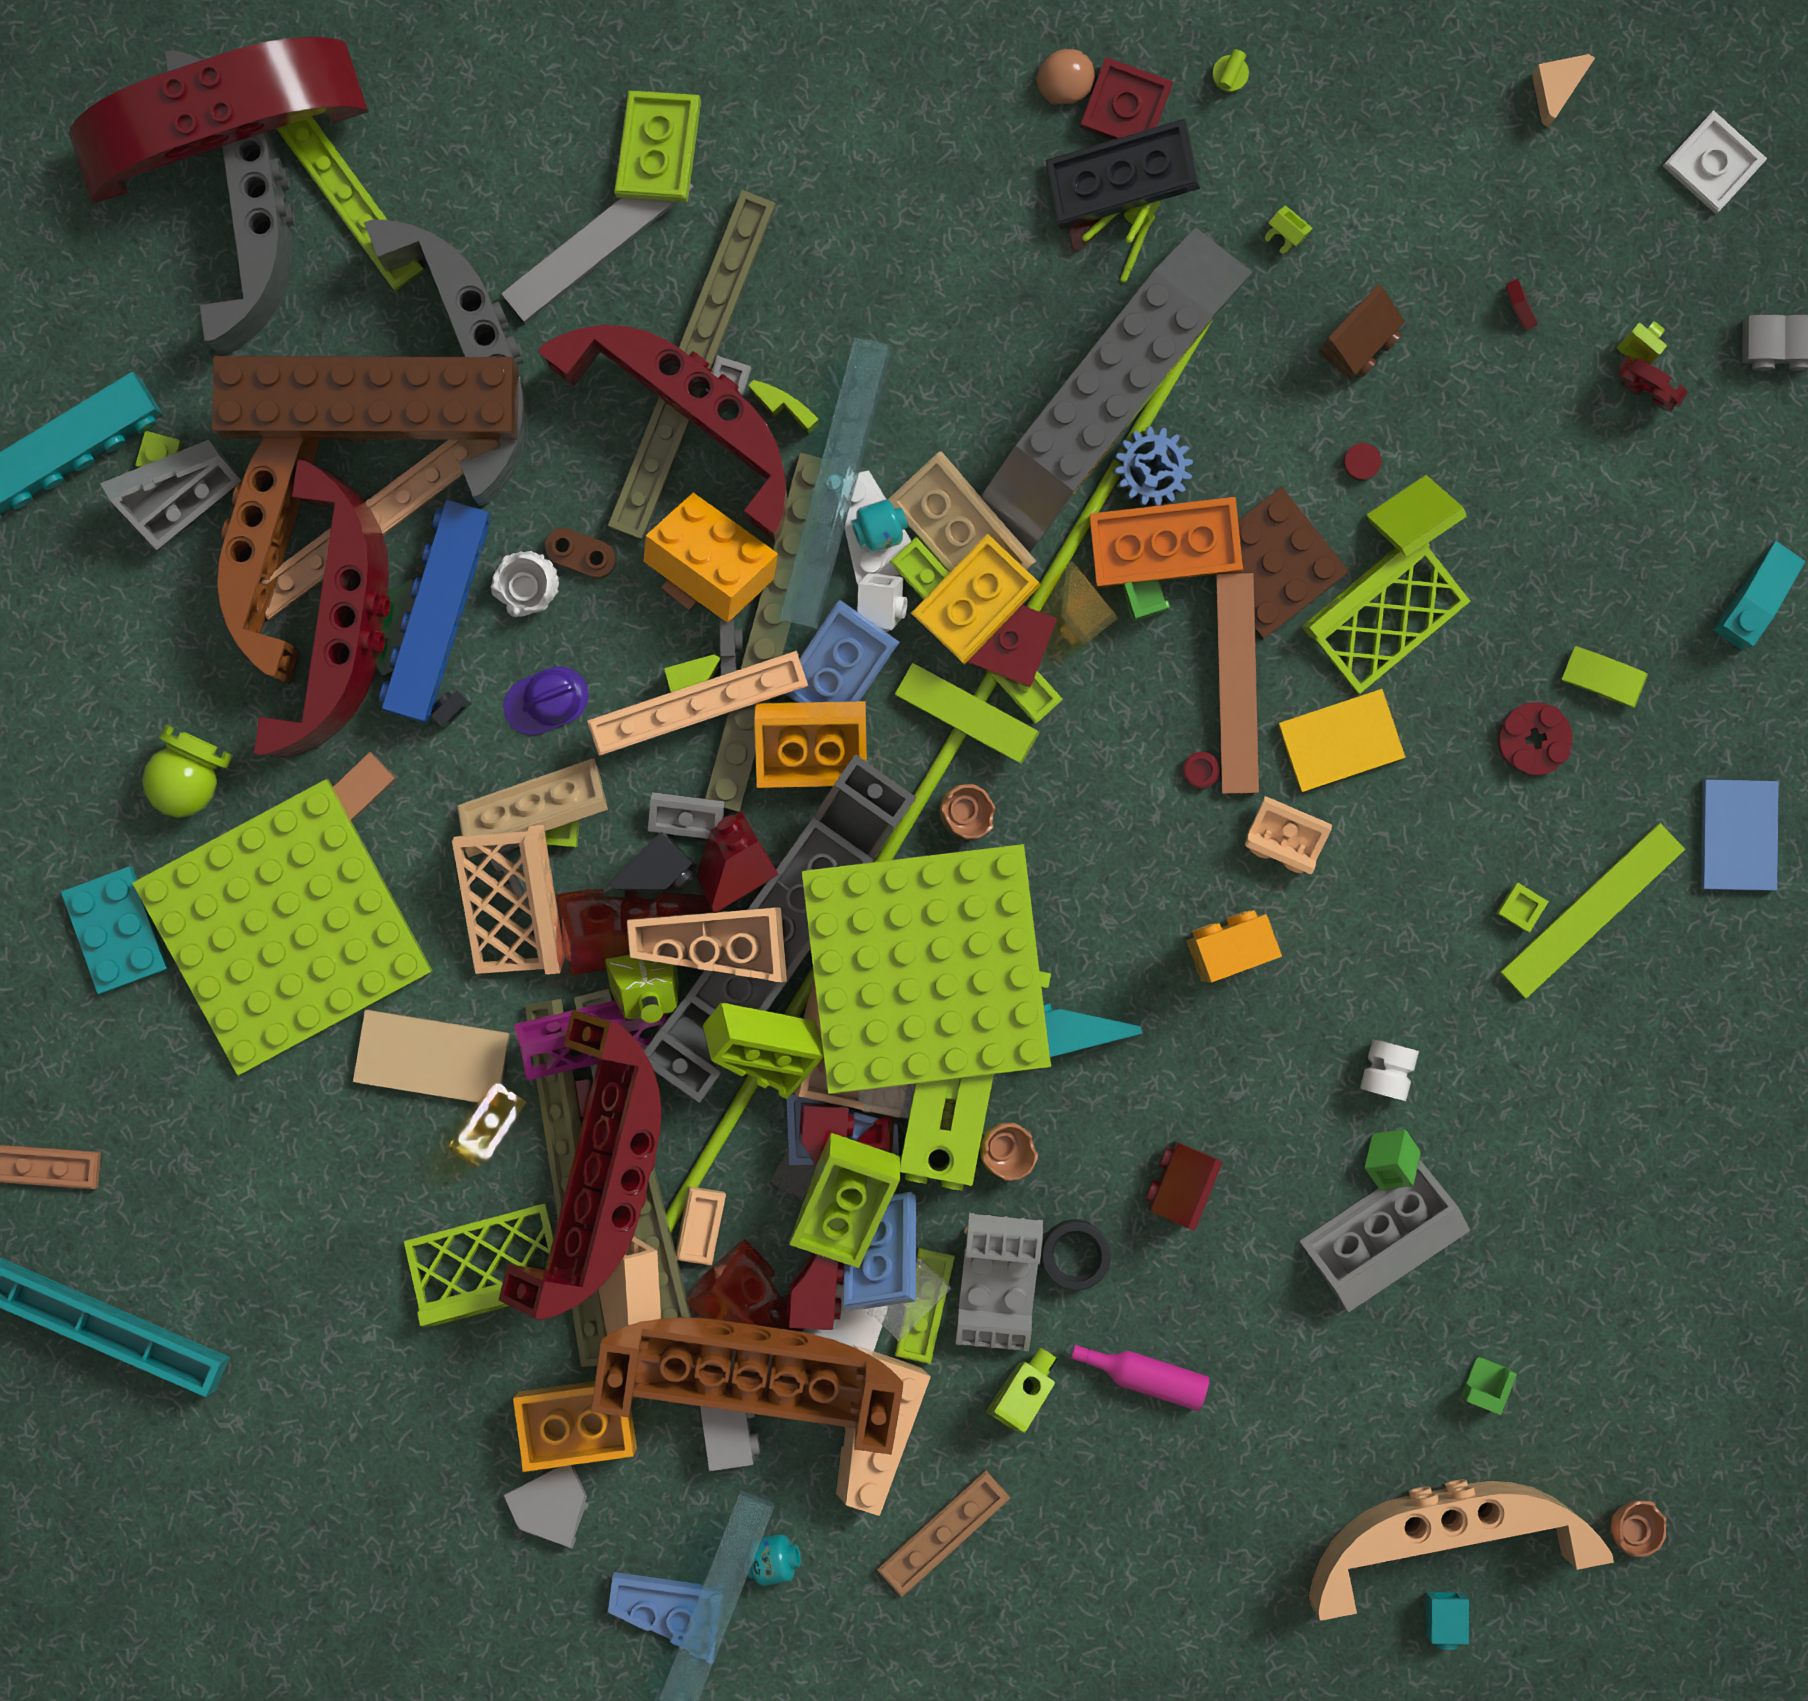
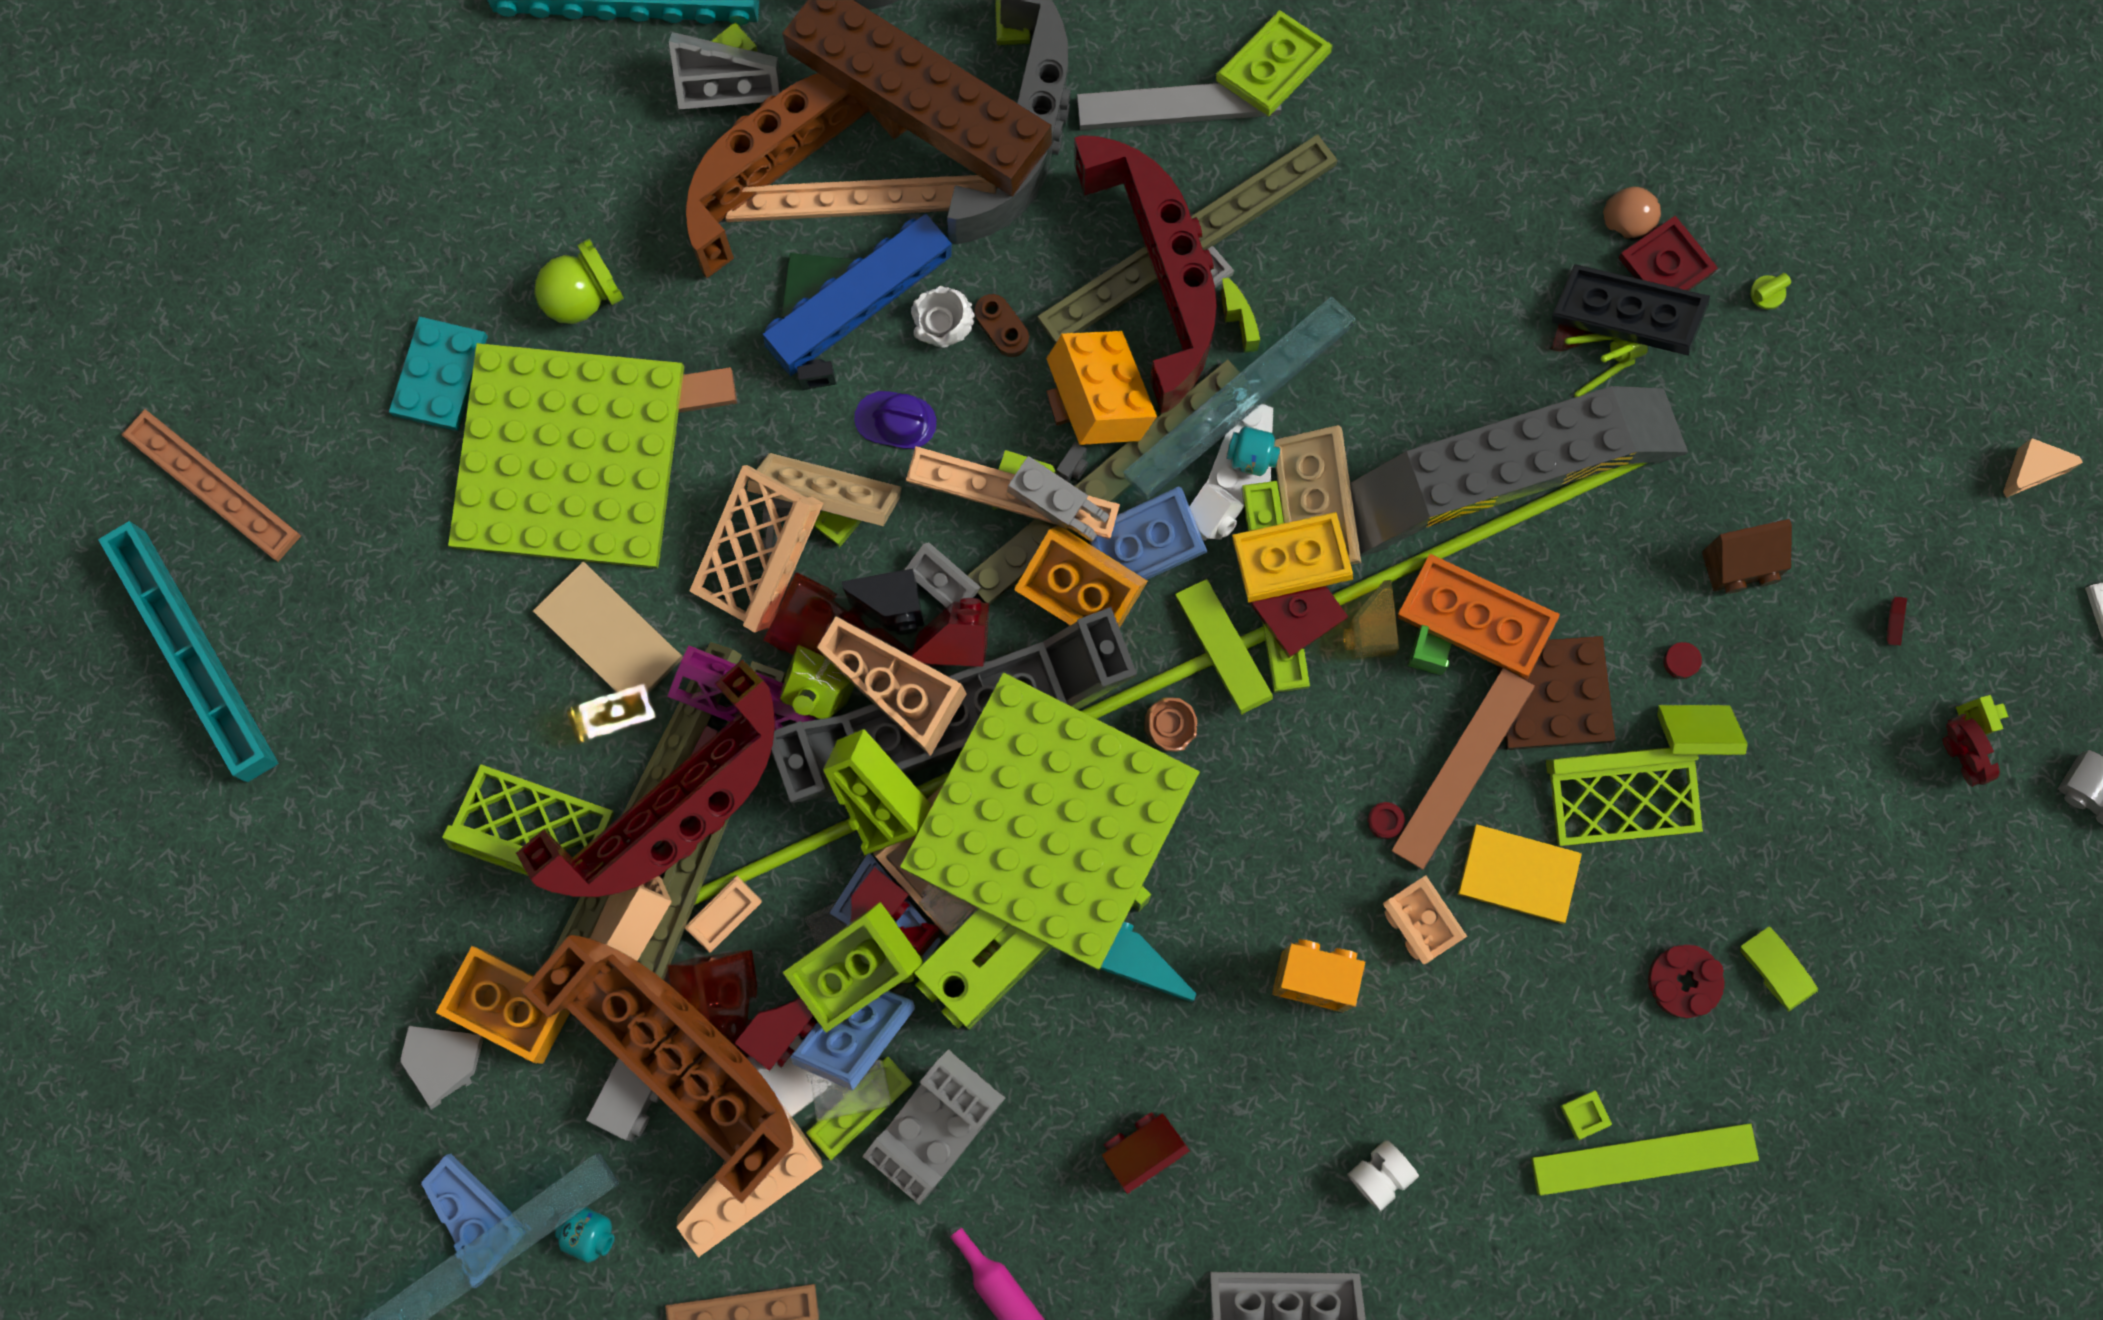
camera: 35 degrees right, 10 degrees down
(335, 681) = (780, 255): dark red slope -> none
(739, 687) = (1054, 497): none -> light grey hinge
(1008, 1151) = (1016, 1024): nougat hair -> none
(1012, 1403) = (875, 1242): lime torso -> none
(1079, 1282) = (987, 1160): black tyre -> none
(1157, 451) = (1496, 541): medium blue gear -> none
(1290, 227) = (1741, 438): lime tile -> none
(1392, 1159) = (1336, 1255): bright green panel -> none
(1739, 835) = (1814, 1181): medium blue tile -> none
(1759, 597) = (1955, 990): teal slope -> none

